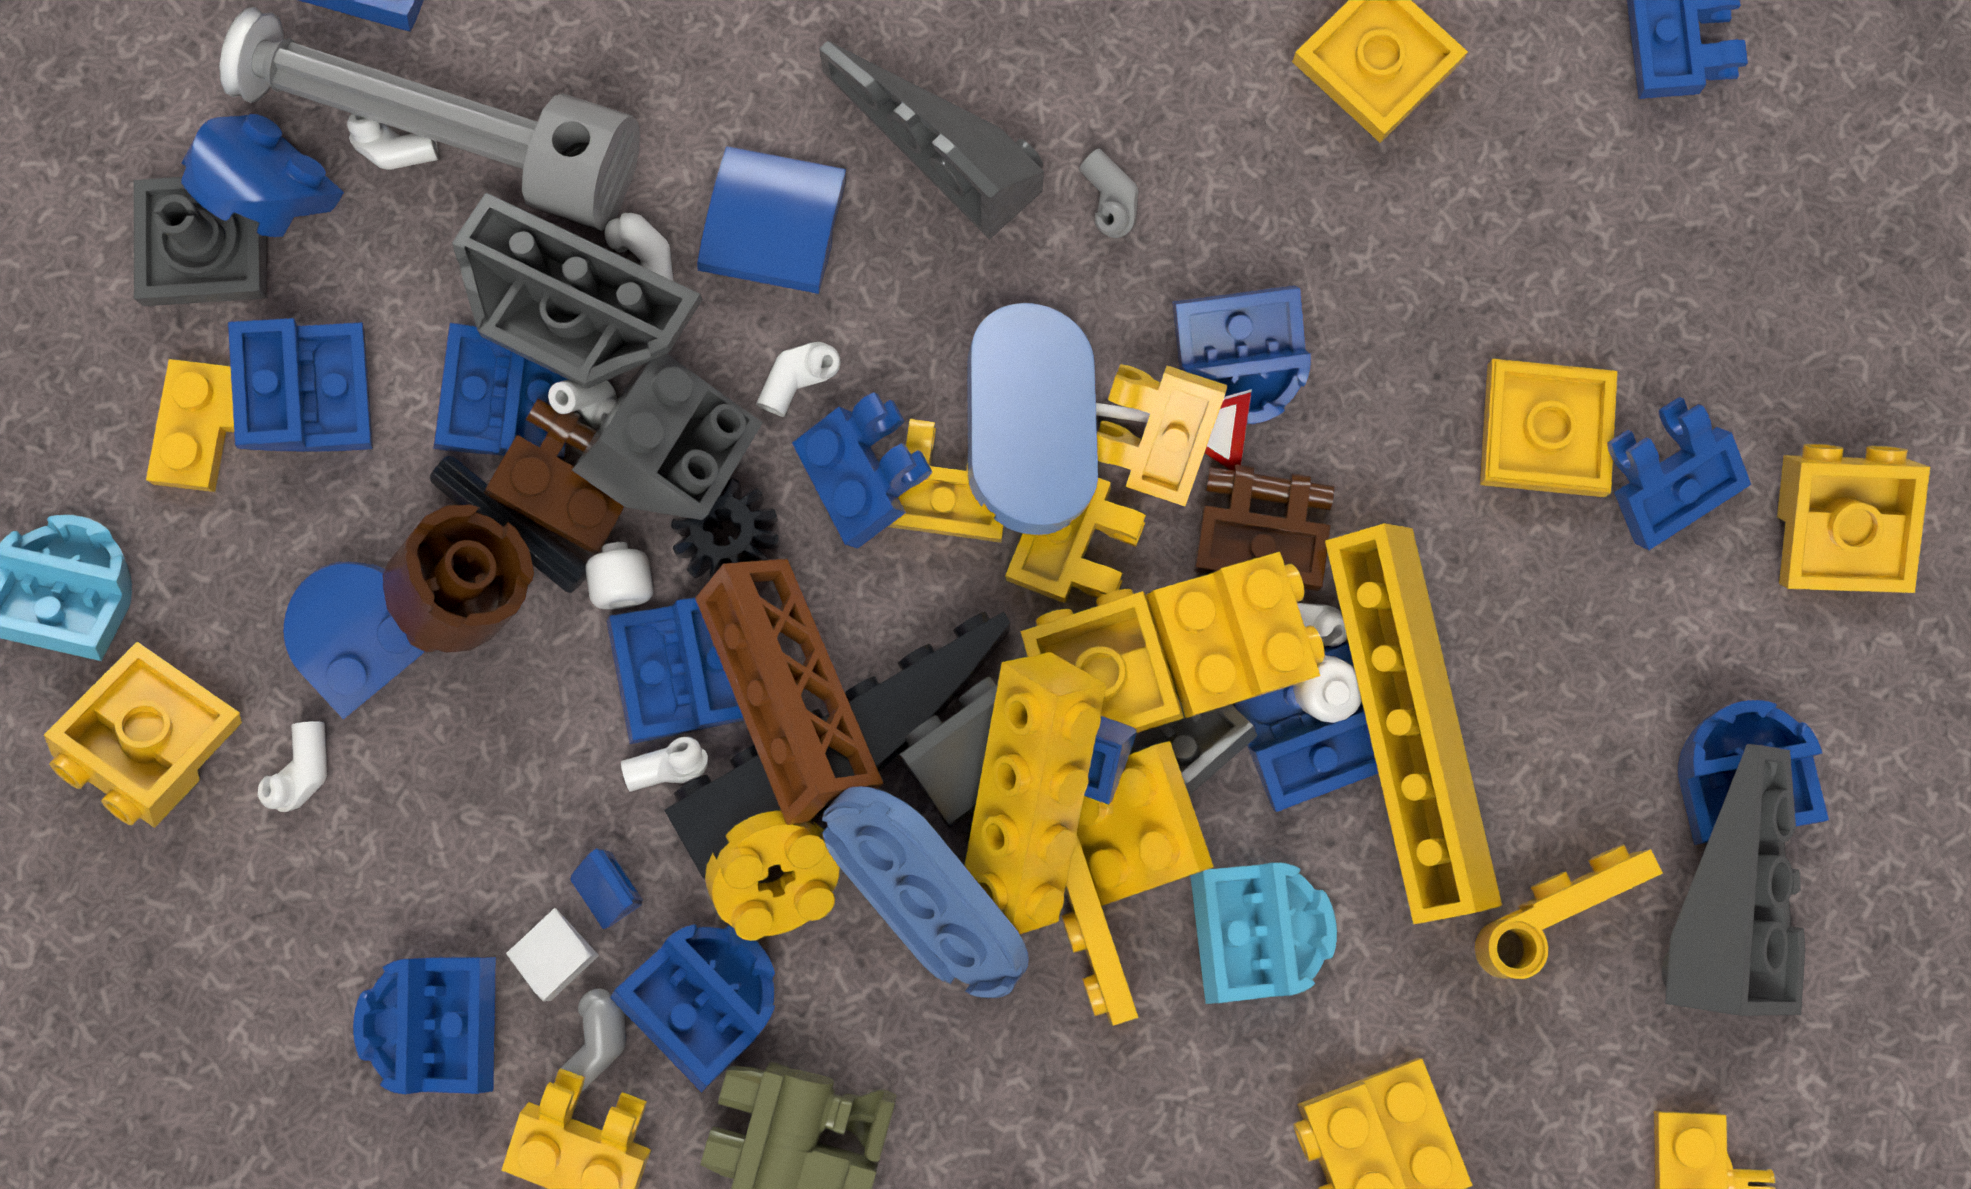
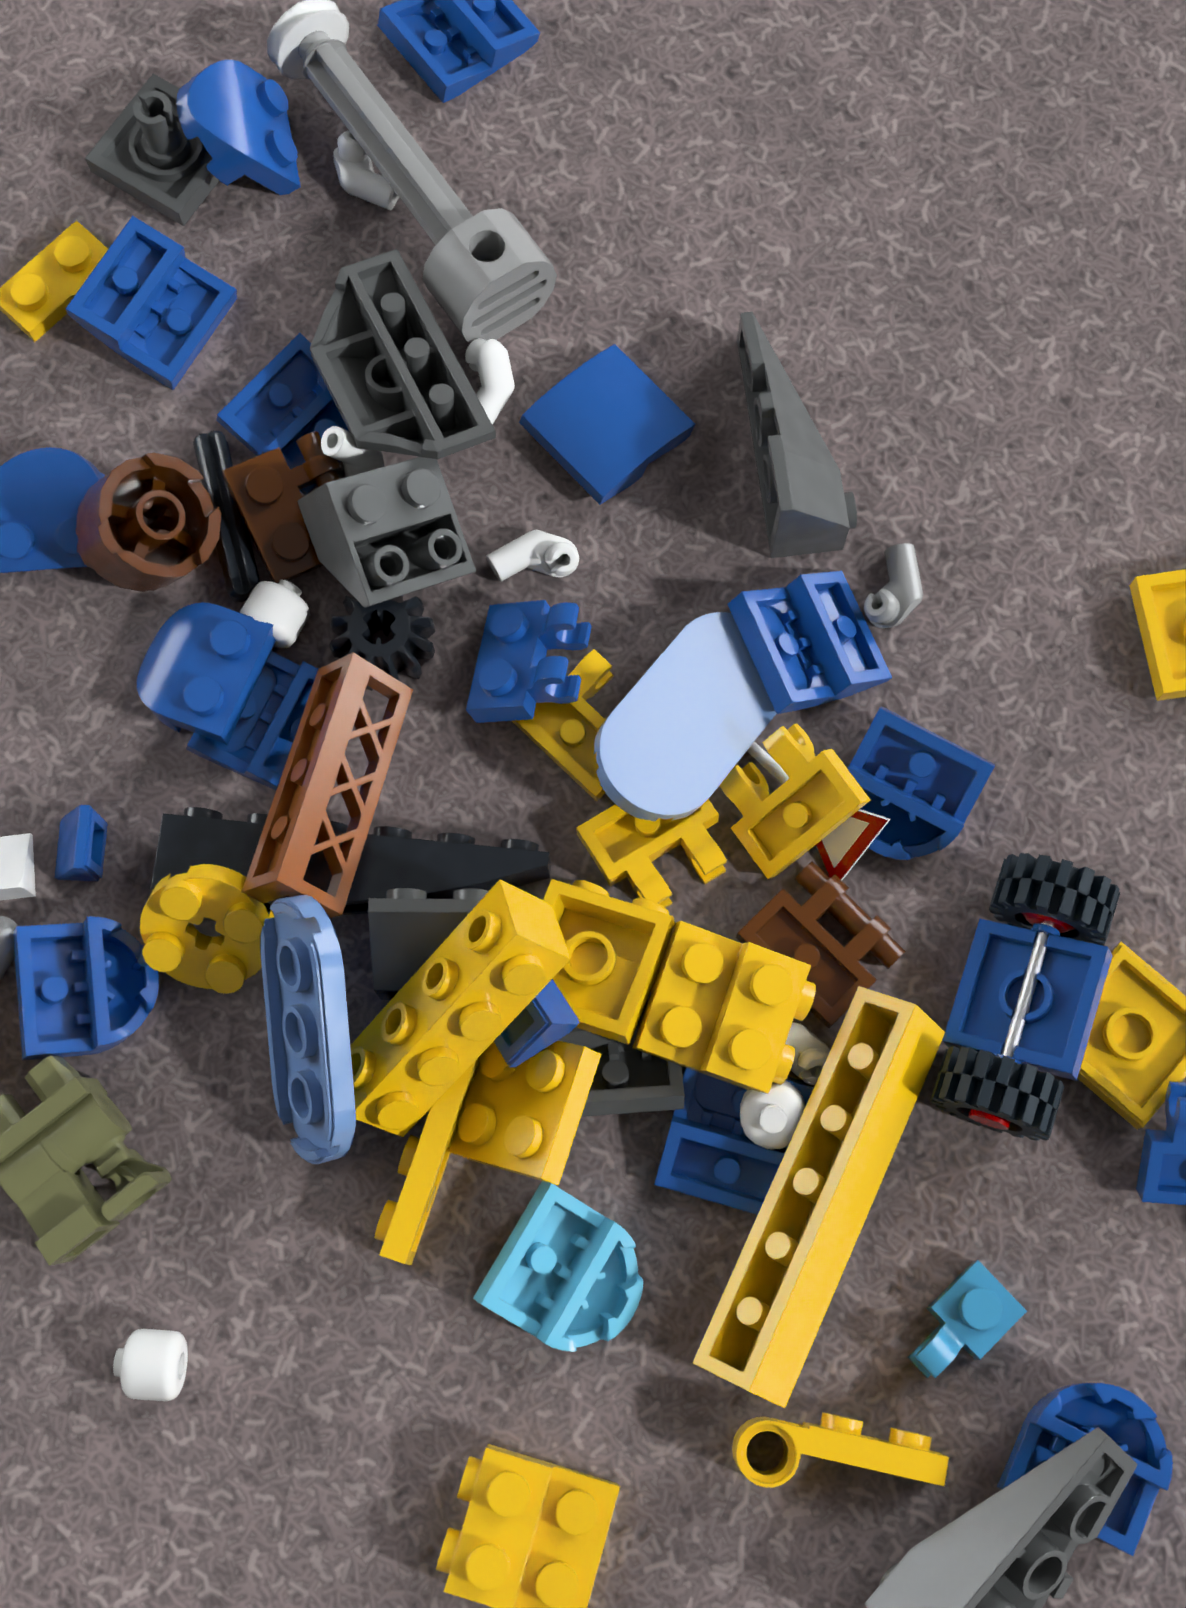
camera: 40 degrees right, 5 degrees down
(596, 667) = (204, 669): none -> blue slope
(677, 763) = (204, 787): white arm -> none
(1075, 288) = (809, 641): none -> blue slope
(1456, 454) = (1027, 996): none -> plate
(1586, 731) = (971, 1315): none -> dark azure plate

